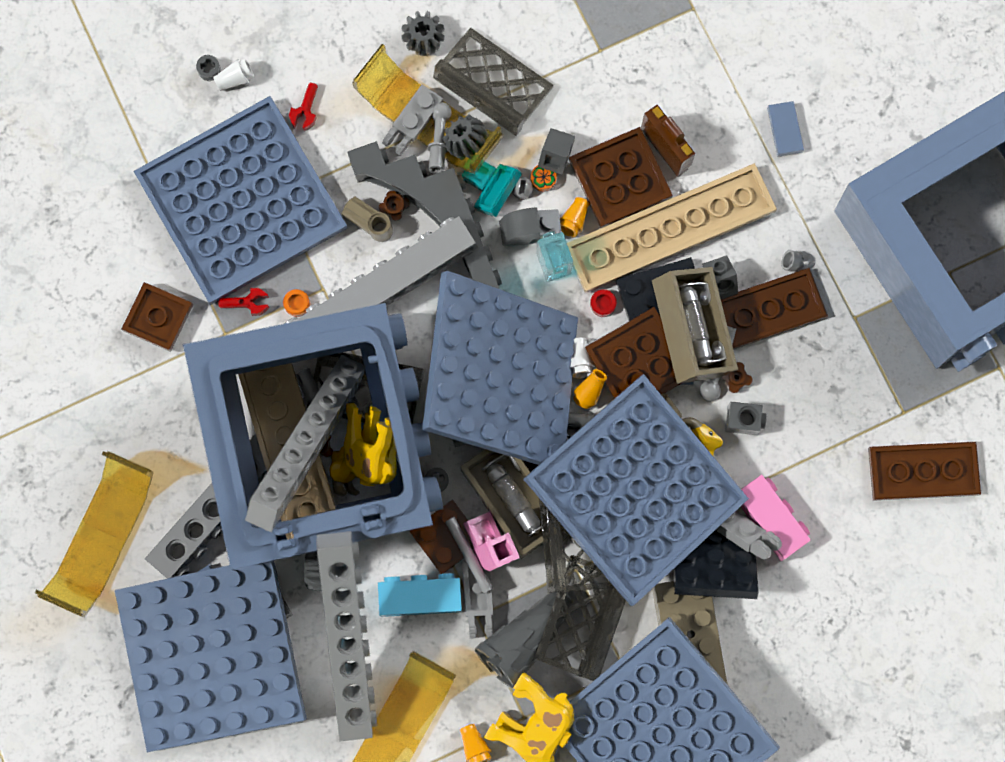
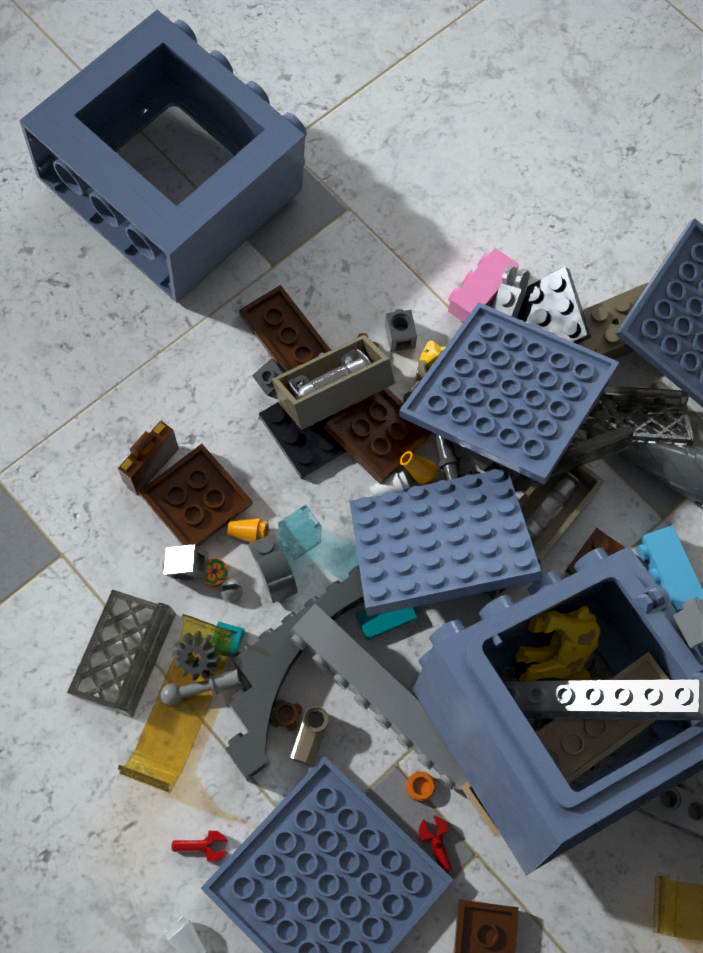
camera: 110 degrees left, 10 degrees down
(413, 118) = (186, 721): light grey hinge -> none
(429, 26) = (76, 738): dark grey gear -> none
(469, 555) = (623, 527): light grey bar -> none
(477, 602) = (647, 519): light grey hinge -> none
(489, 546) = (605, 514): bright pink brick -> none
(497, 190) = (241, 612): teal tile -> none
(603, 303) = (327, 483): red tile -> none
(670, 227) = (234, 438): tan plate -> none
(785, 128) = (104, 362): sand blue tile -> none
(792, 261) = (232, 330): light grey hinge -> none
(924, 471) = (396, 182): reddish brown tile -> none

